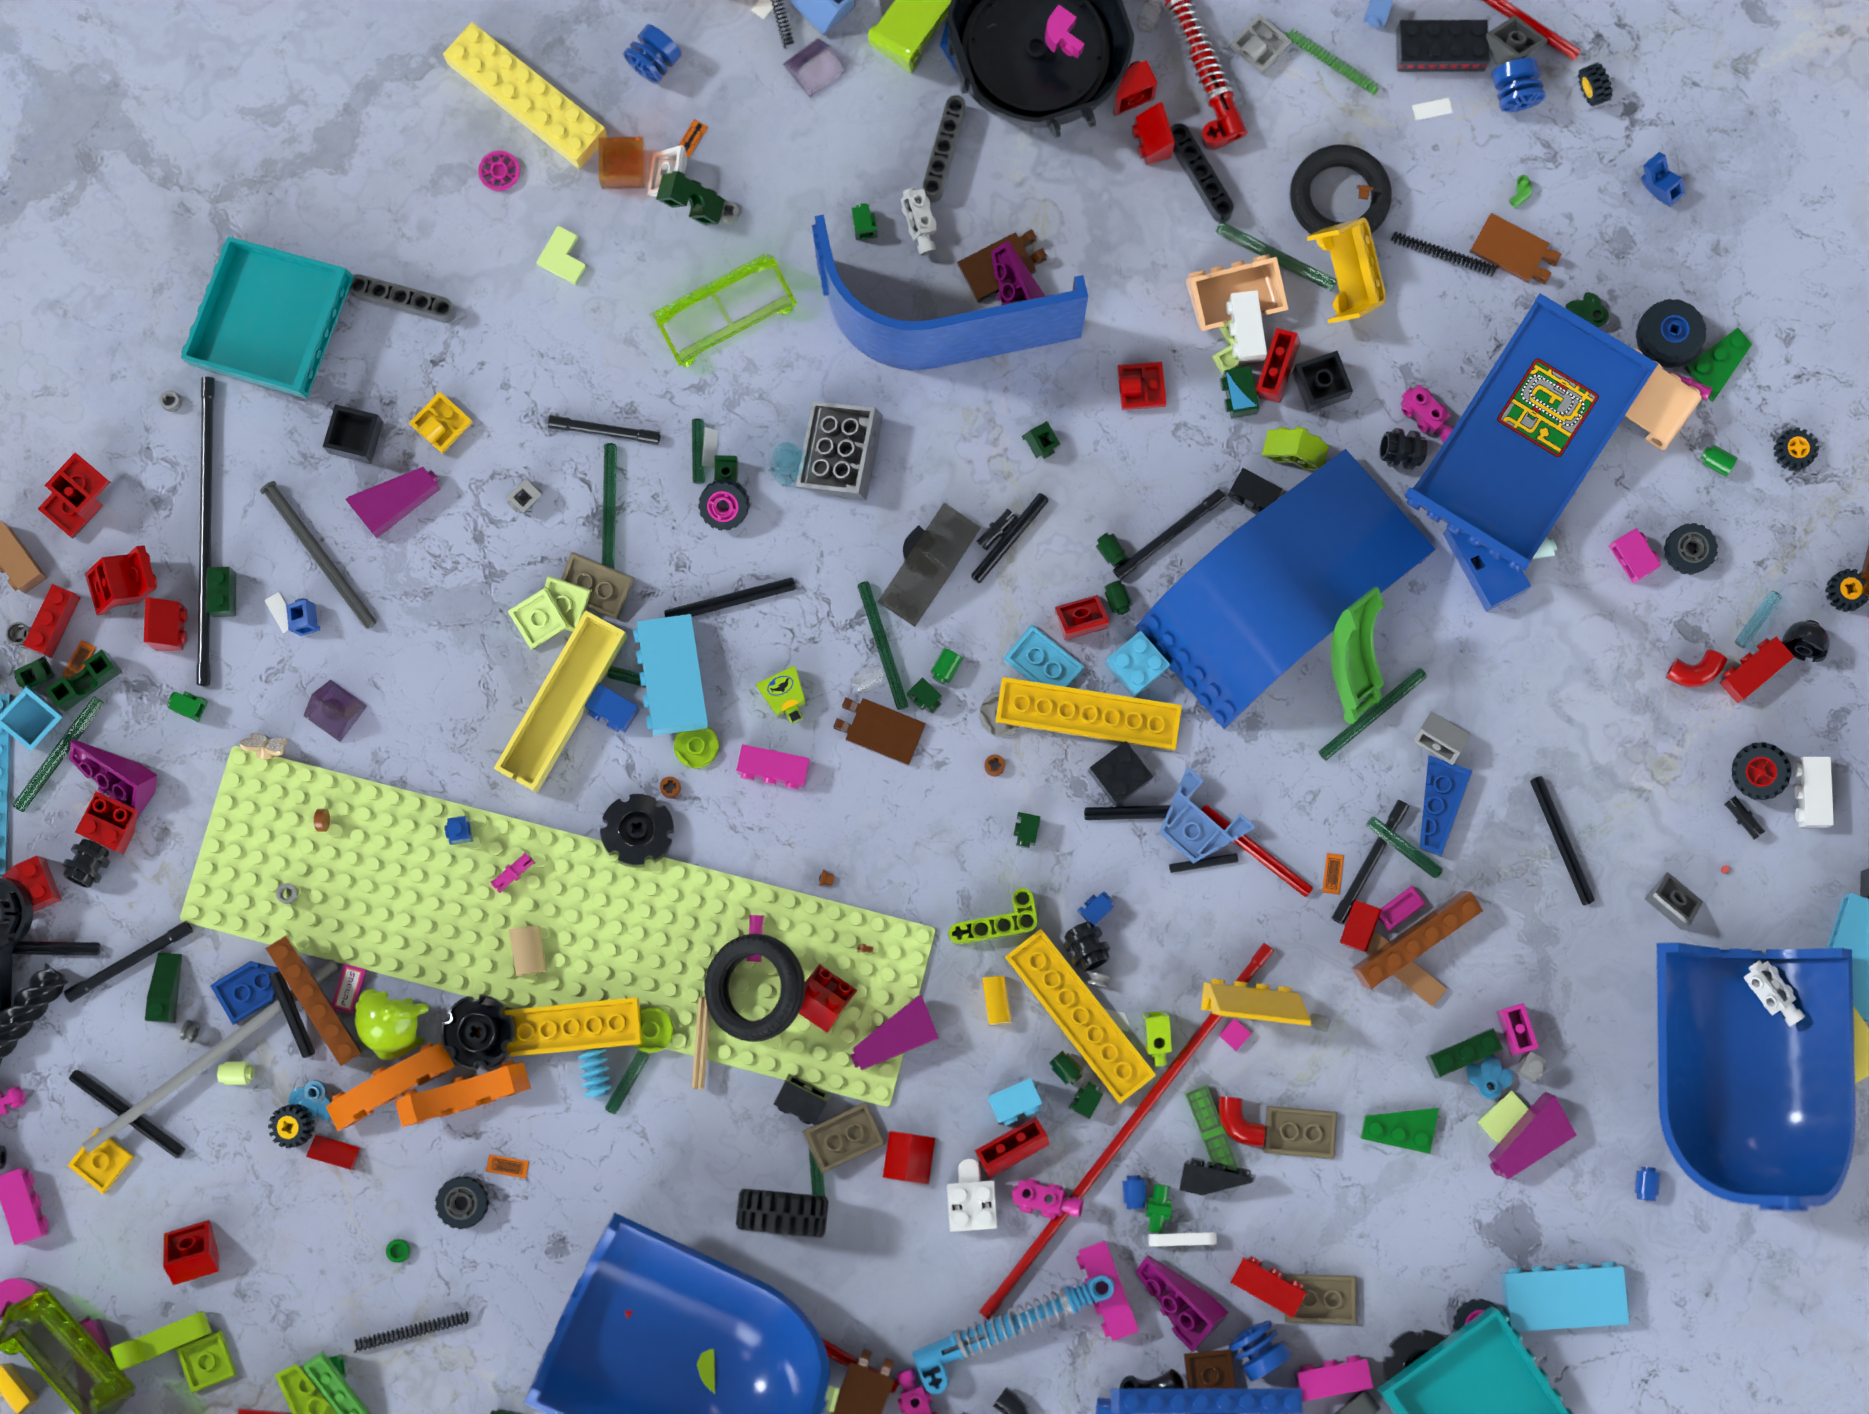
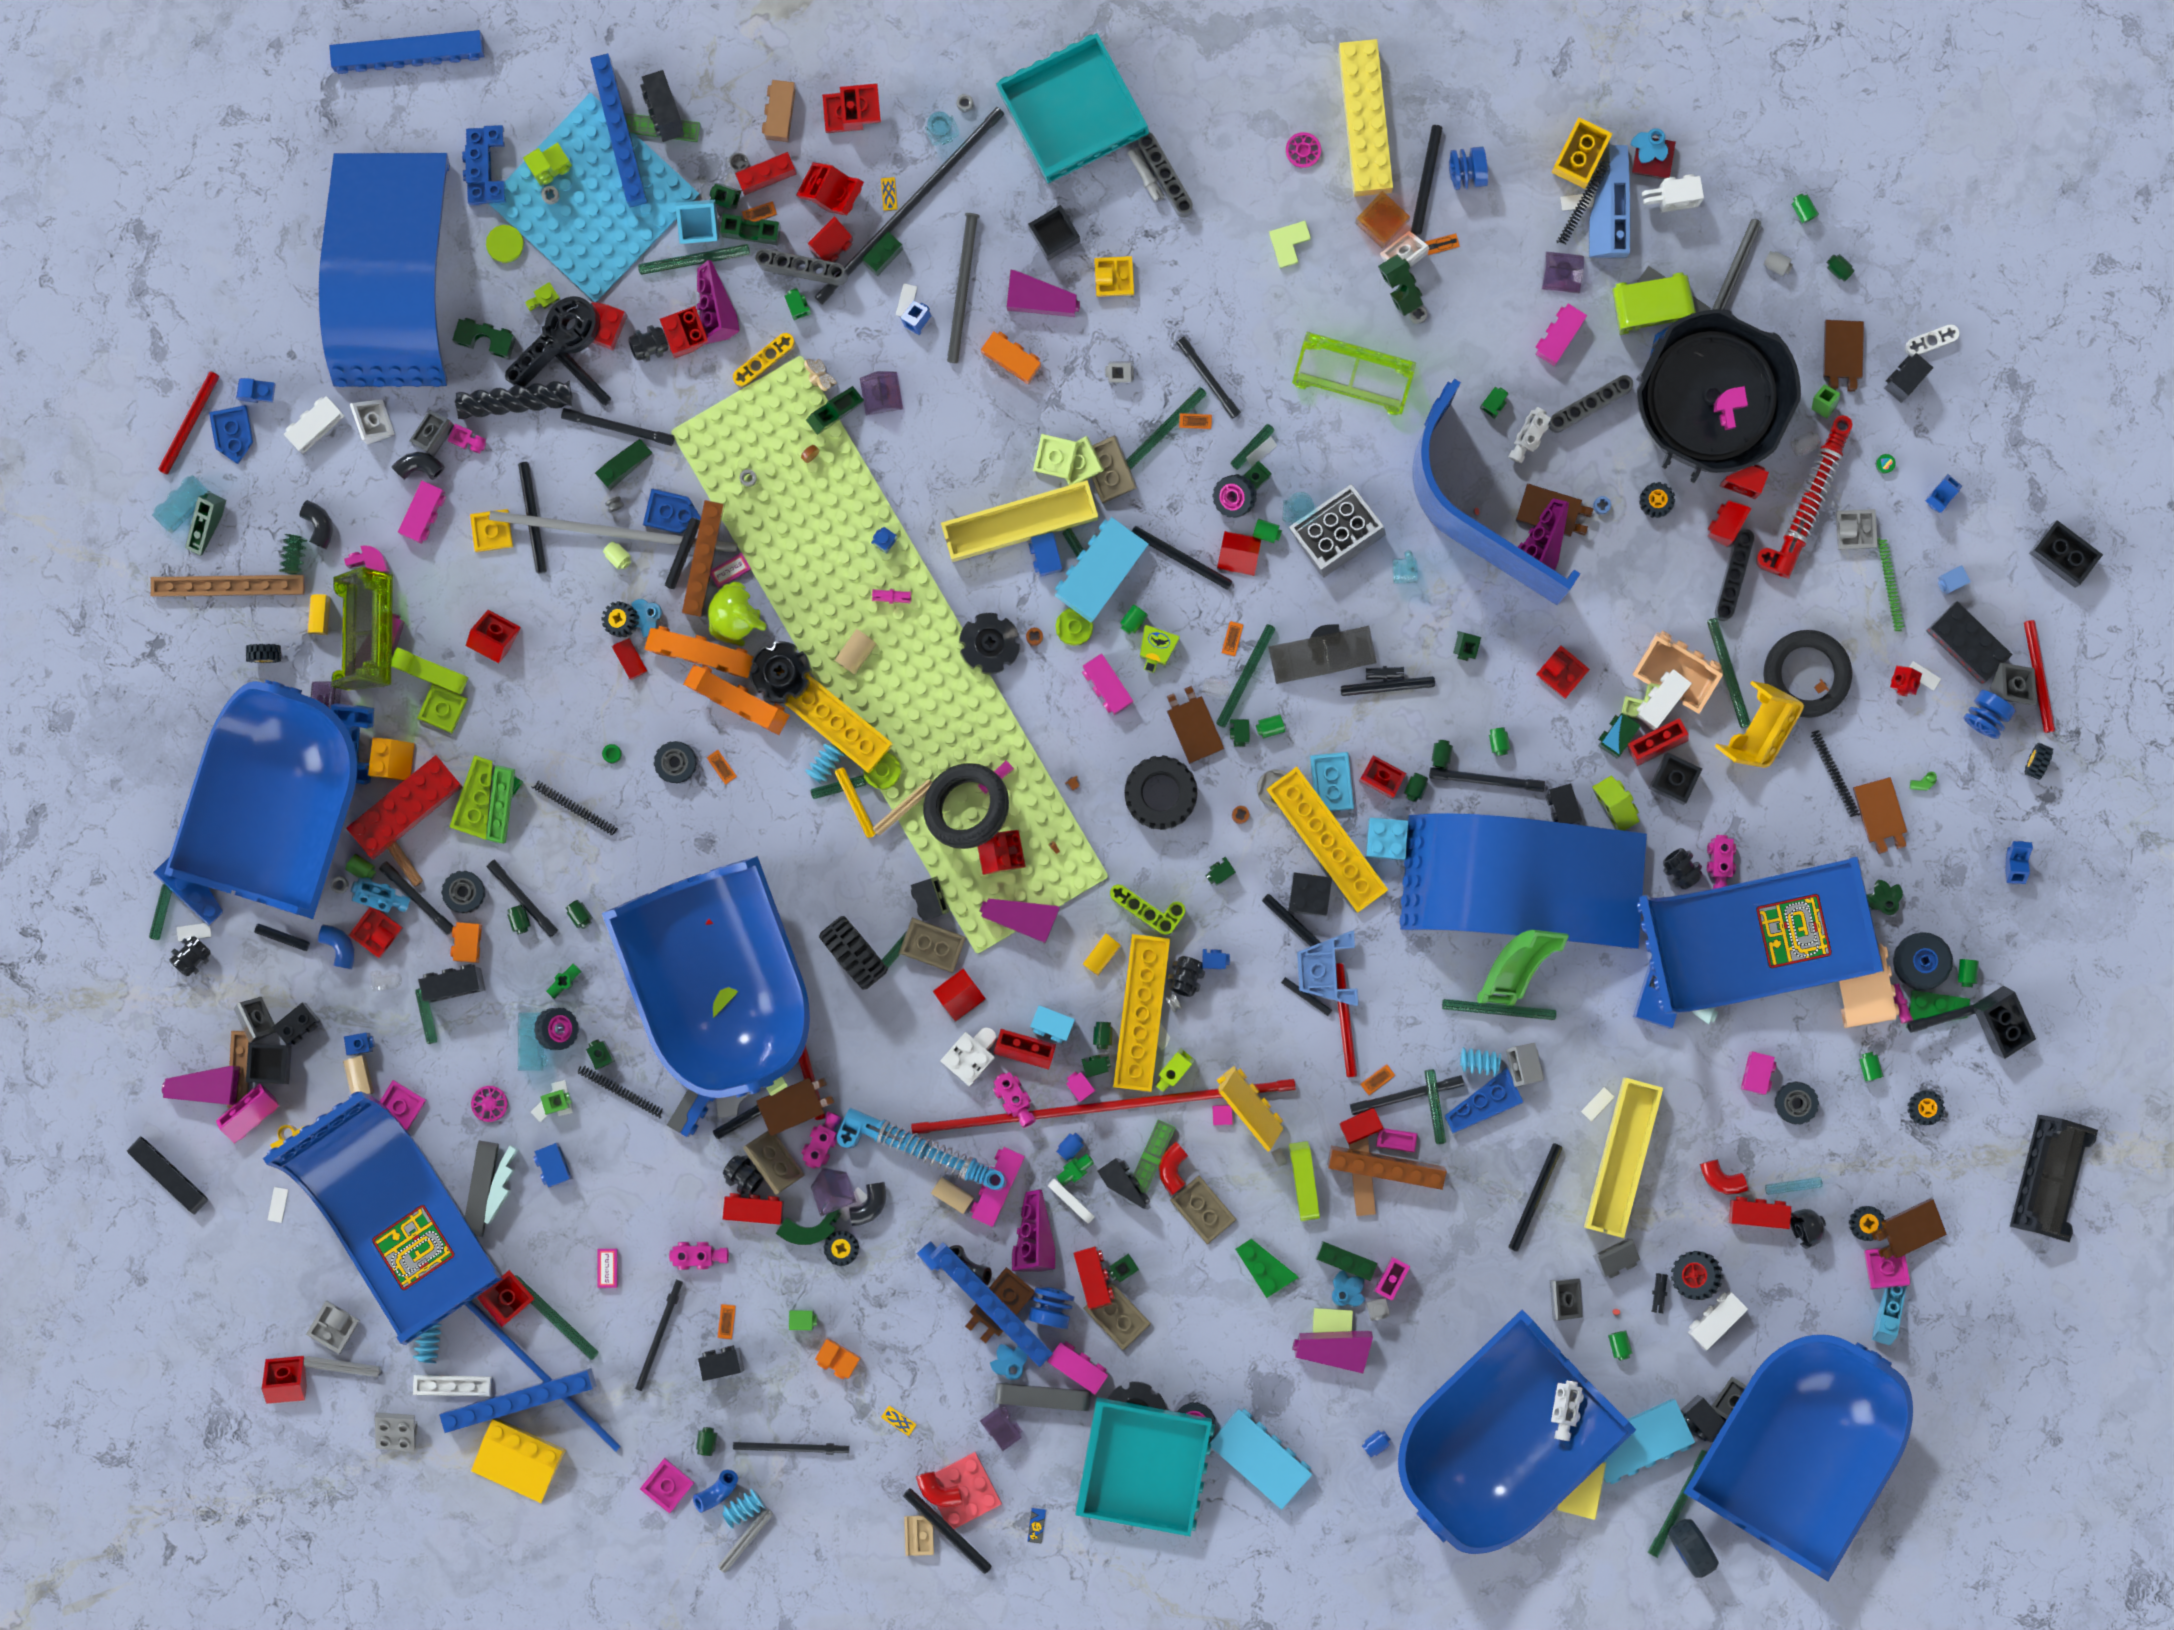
camera: 50 degrees right, 5 degrees up
(149, 669) = (795, 261): none -> dark grey beam
(169, 440) = (941, 128): none -> clear light blue piece
(178, 538) = (889, 193): none -> yellow sticker
(200, 780) = (761, 357): none -> yellow beam
(307, 762) = (834, 410): none -> dark green slope
(394, 317) = (1149, 181): none -> light grey pin
(418, 572) = (1011, 356): none -> orange brick
(626, 98) = (1426, 179): none -> black axle
(629, 475) = (1200, 421): none -> sticker
(655, 1080) = (855, 802): none -> yellow axle
(741, 690) = (1133, 620): none -> green brick
(775, 549) = (1239, 553): none -> red slope
(780, 508) = (1267, 531): none -> green brick
(840, 625) = (1232, 638): none -> sticker
(862, 116) = (1560, 334): none -> dark pink brick
(905, 781) = (1160, 766): none -> black tyre
(928, 426) = (1405, 569): none -> clear light blue piece
(1033, 214) = (1597, 501): none -> medium blue bush
(1076, 1338) = (952, 1195): none -> tan brick
(1078, 166) = (1662, 495): none -> black wheel
(1091, 1131) = (1079, 1086): none -> dark pink brick
(1148, 492) = (1499, 741): none -> green brick
(1291, 1245) = (1131, 1268): none -> dark green brick
(1360, 1019) = (1304, 1180): none -> lime beam
(1402, 772) = (1480, 1061): none -> medium azure piece
(1424, 123) = (1905, 680): none -> red brick
(1532, 712) = (1597, 1104): none -> white sticker
(1601, 734) = (1623, 1157): none -> light yellow piece
(1680, 822) = (1617, 1257): none -> dark grey slope
(1715, 307) = (1968, 972): none -> green brick
(1726, 380) = (1924, 1023): none -> black piece
(1758, 893) = (1620, 1345): none -> green brick
(1787, 316) = (2004, 1022): none -> black brick

